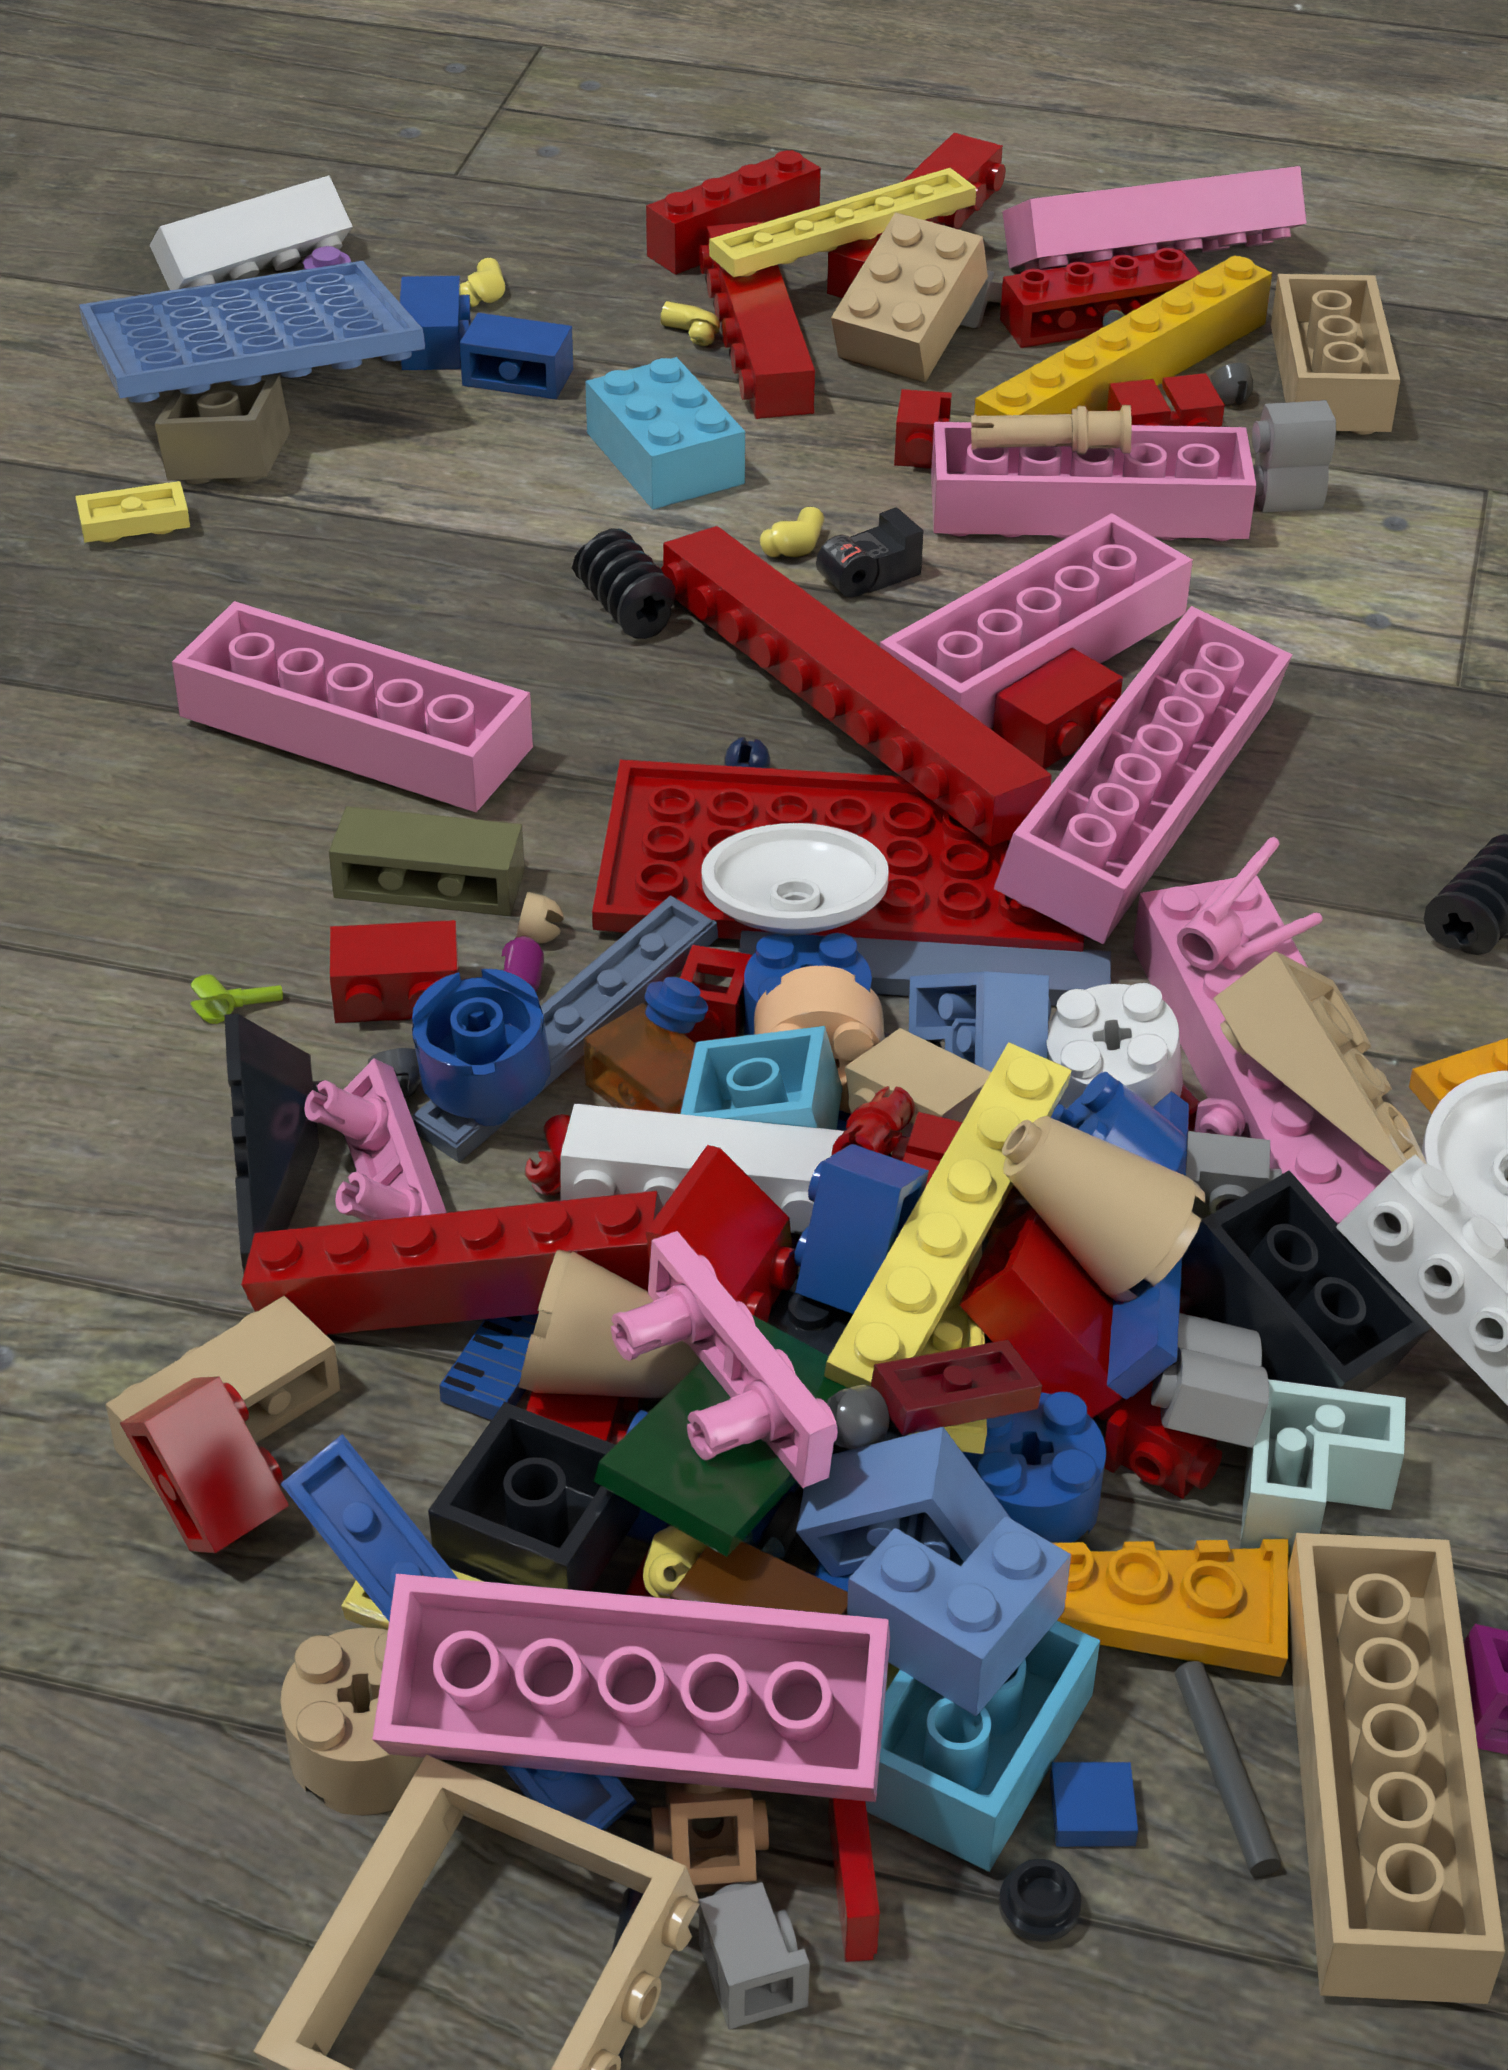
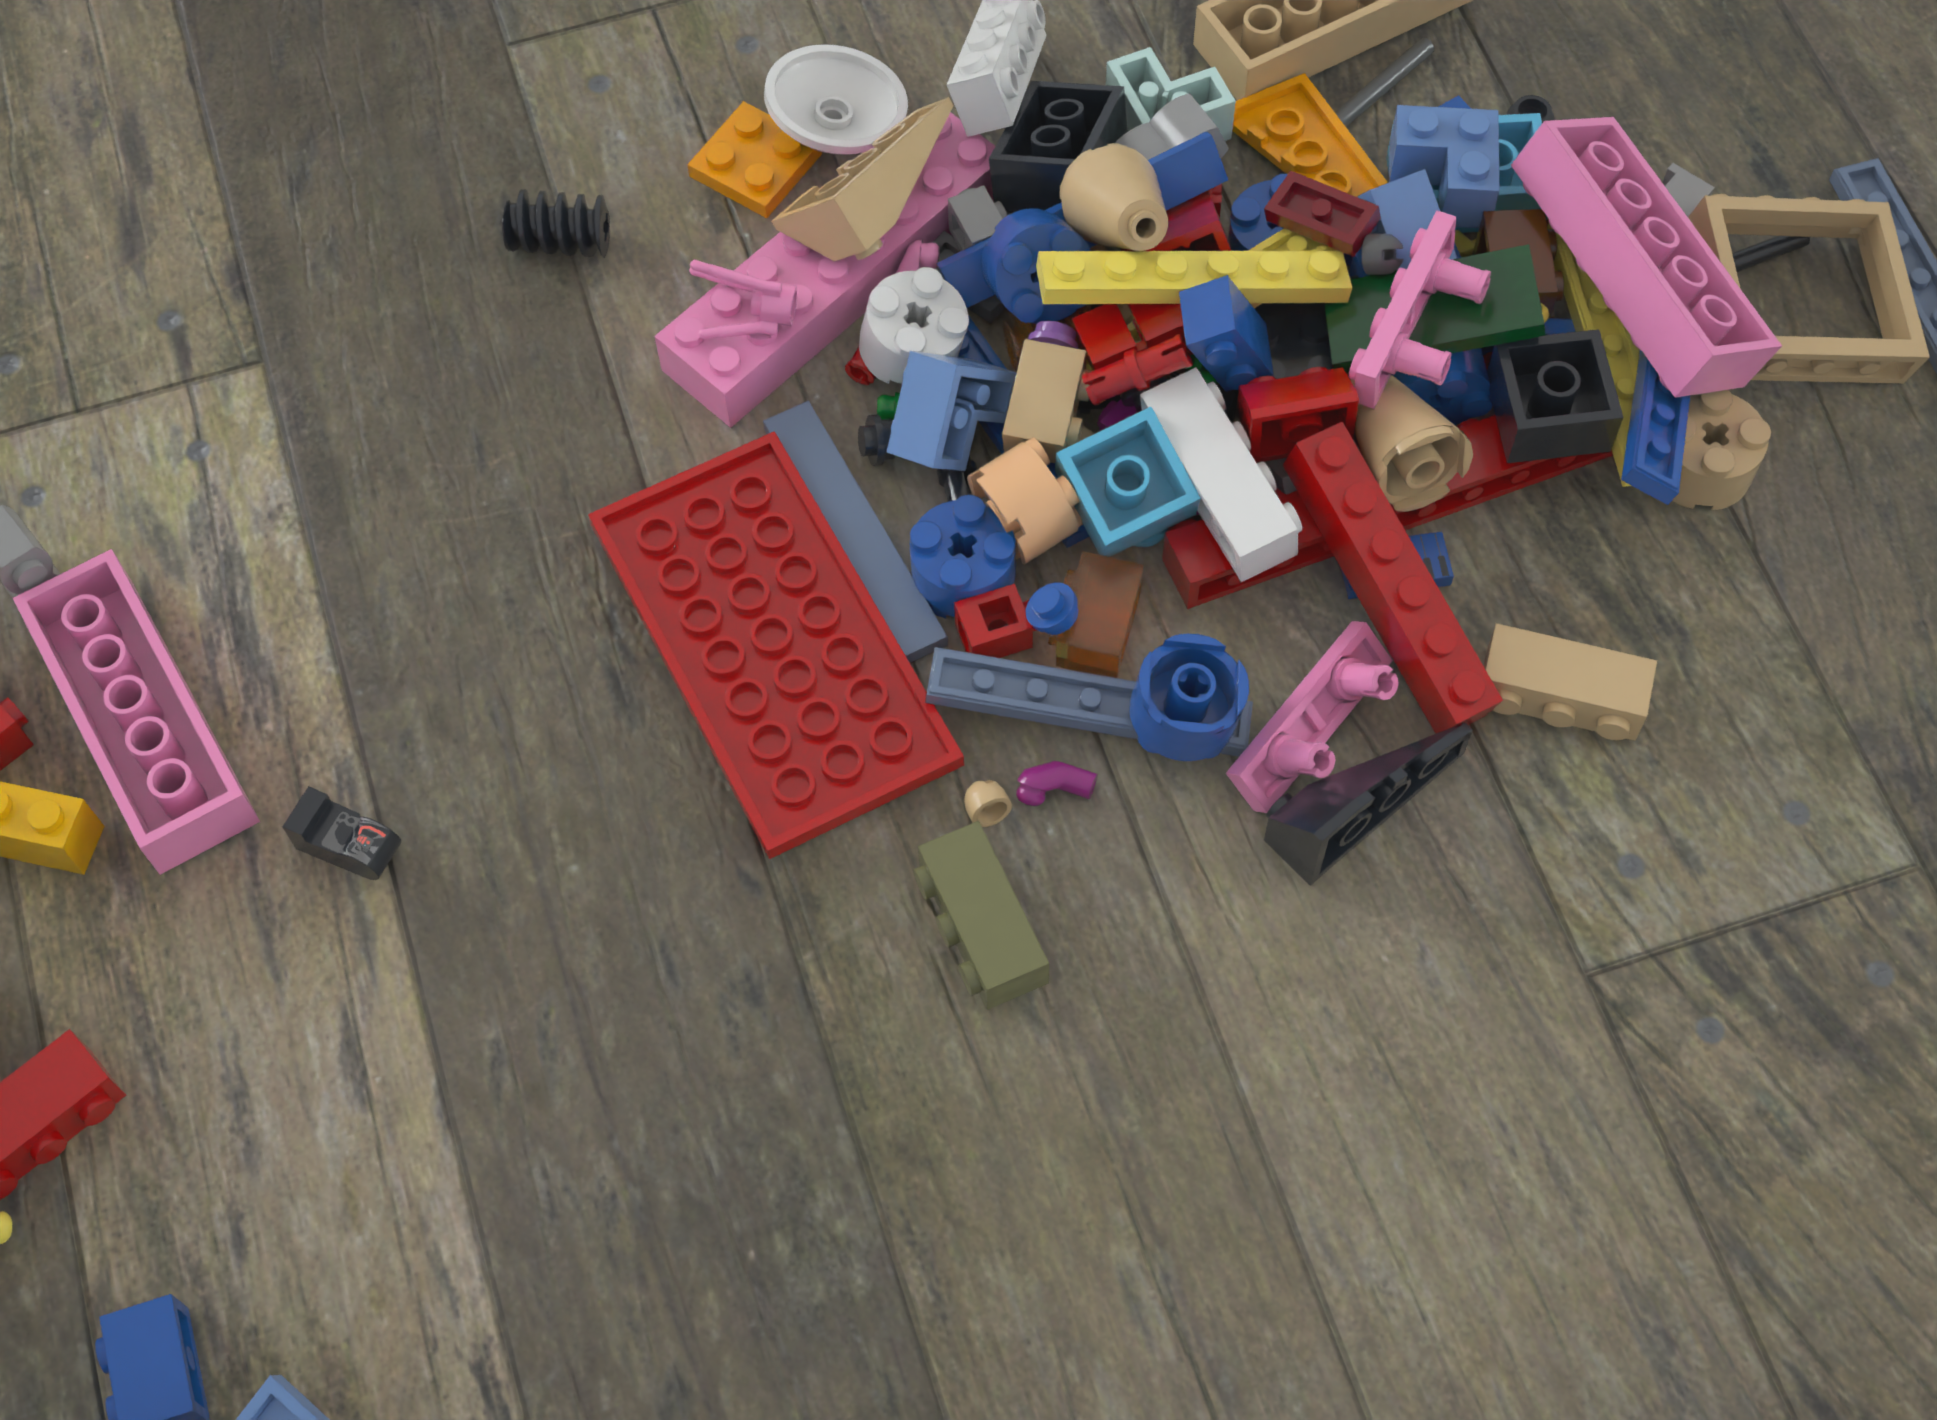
camera: 120 degrees left, 20 degrees up
(206, 1463) = (1640, 625): red brick -> none
(219, 1002) = (1232, 964): lime hand -> none
(354, 705) = (843, 1098): bright pink brick -> none
(387, 967) = (1121, 850): red brick -> none
(405, 1067) = (1203, 783): dark grey hinge -> none
(547, 1173) = (1226, 629): red arm -> none
(626, 582) = (509, 1001): black piece -> none
(665, 432) = (235, 1124): medium azure brick -> none
(747, 751) = (692, 785): dark blue hinge -> none
(793, 537) = (333, 920): light yellow arm -> none
(795, 877) = (867, 568): white dish -> none
(856, 684) = (559, 743): red brick -> none
(916, 425) = (101, 908): red brick -> none
(1056, 706) = (489, 585): red brick -> none
(1077, 430) = (121, 700): tan pin -> none
(1083, 593) = (398, 638): bright pink brick -> none
(1142, 775) = (565, 455): bright pink brick -> none

